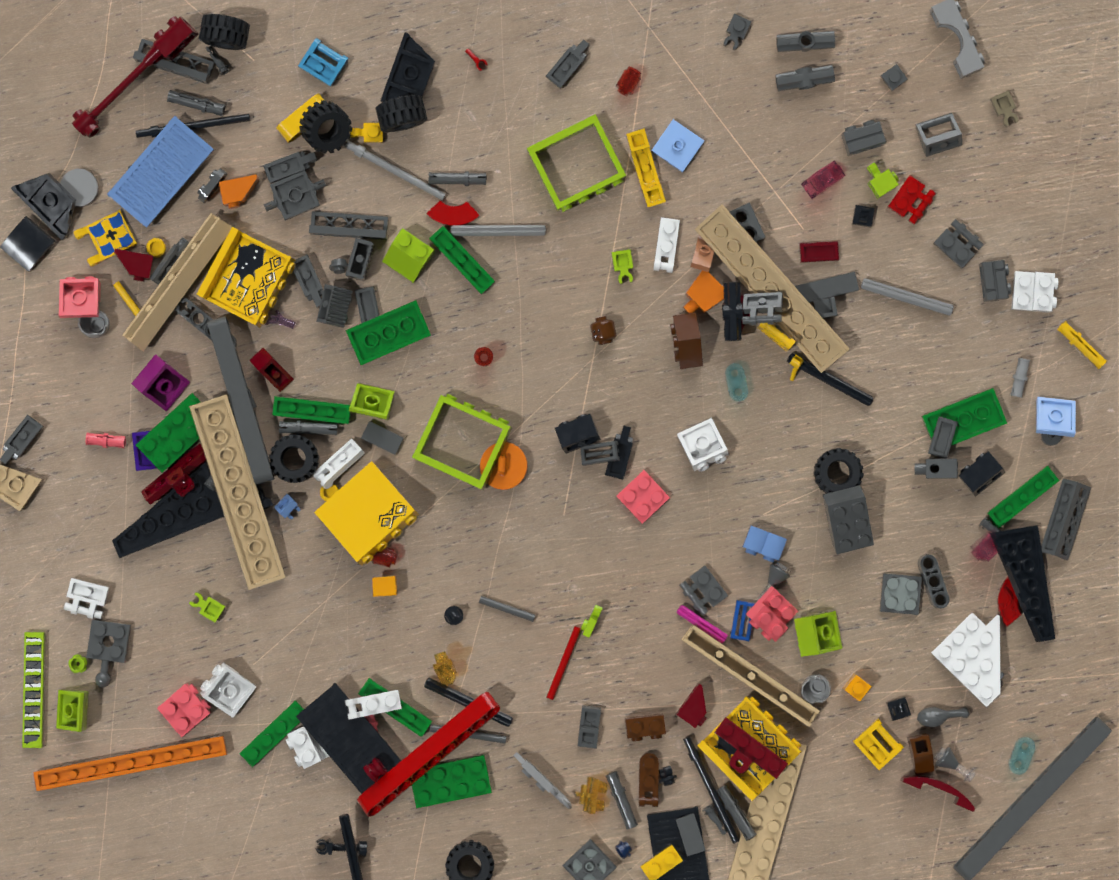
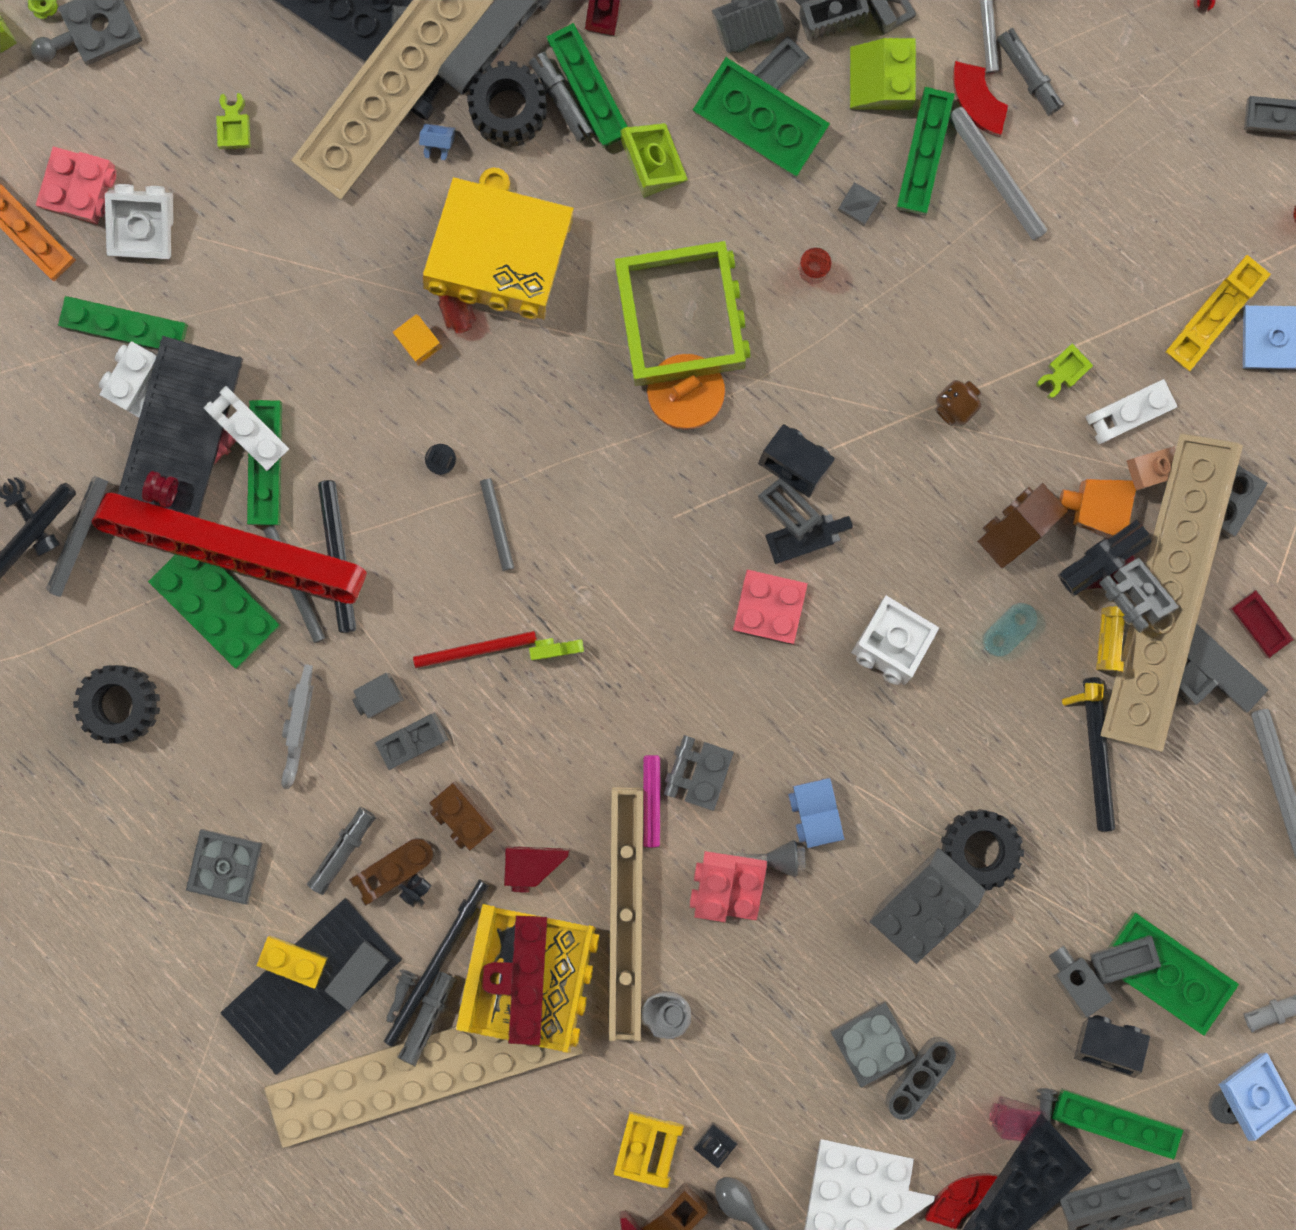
camera: 65 degrees right, 0 degrees up
(338, 463) = (540, 168): white plate -> none
(368, 829) = (76, 536): none -> dark grey tile
(382, 438) = (614, 205): dark grey tile -> none
(444, 669) = (359, 492): clear yellow hips -> none
(466, 311) = (859, 204): none -> dark grey tile
(554, 729) = (377, 696): none -> dark grey brick
(563, 135) = (1184, 174): lime window -> none
(589, 794) = (321, 801): clear yellow hips -> none
(623, 849) = (277, 898): dark blue plate -> none
(735, 618) = (669, 863): blue tile -> none
(818, 633) = (743, 967): lime slope -> none
(856, 687) = (706, 1069): light orange brick -> none

